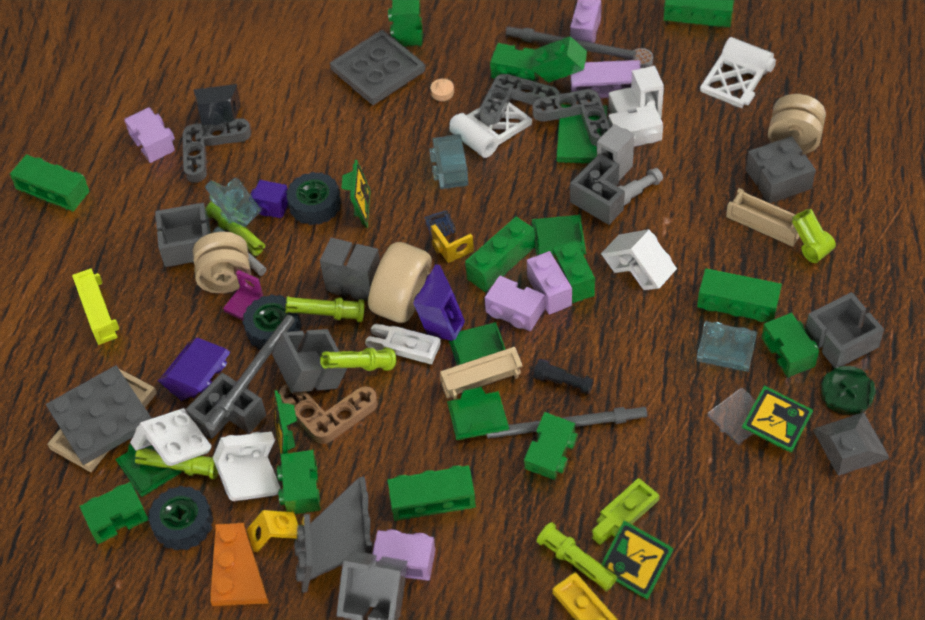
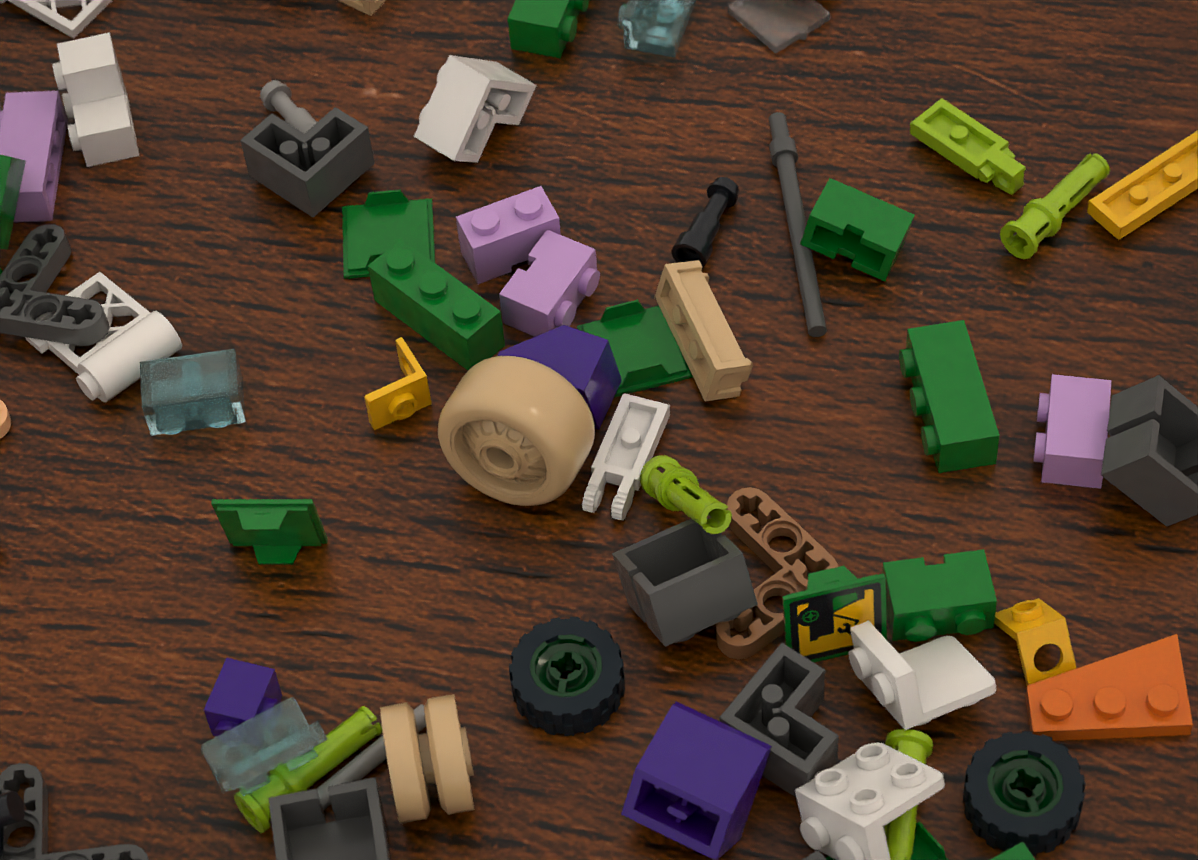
camera: 90 degrees left, 0 degrees up
(226, 405) = (813, 688): dark grey bar -> none
(244, 296) = (502, 731): magenta bracket -> none
(313, 198) = (235, 605): black wheel -> none
(333, 534) = (1060, 525): dark grey piece -> none
(336, 308) = (549, 555): lime pin -> none
(356, 275) = (464, 537): dark grey piece -> none
(442, 221) = (341, 414): clear smoke tile -> none
(477, 414) = (785, 341): green piece -> none
(574, 141) = (149, 199): green tile -> none
(576, 270) = (479, 188): green brick -> none
(583, 108) = (104, 180): dark grey beam -> none
(619, 147) = (223, 117): light grey brick -> none
(637, 559) = (1057, 126): piece -> none
(643, 123) = (159, 116): white brick -> none

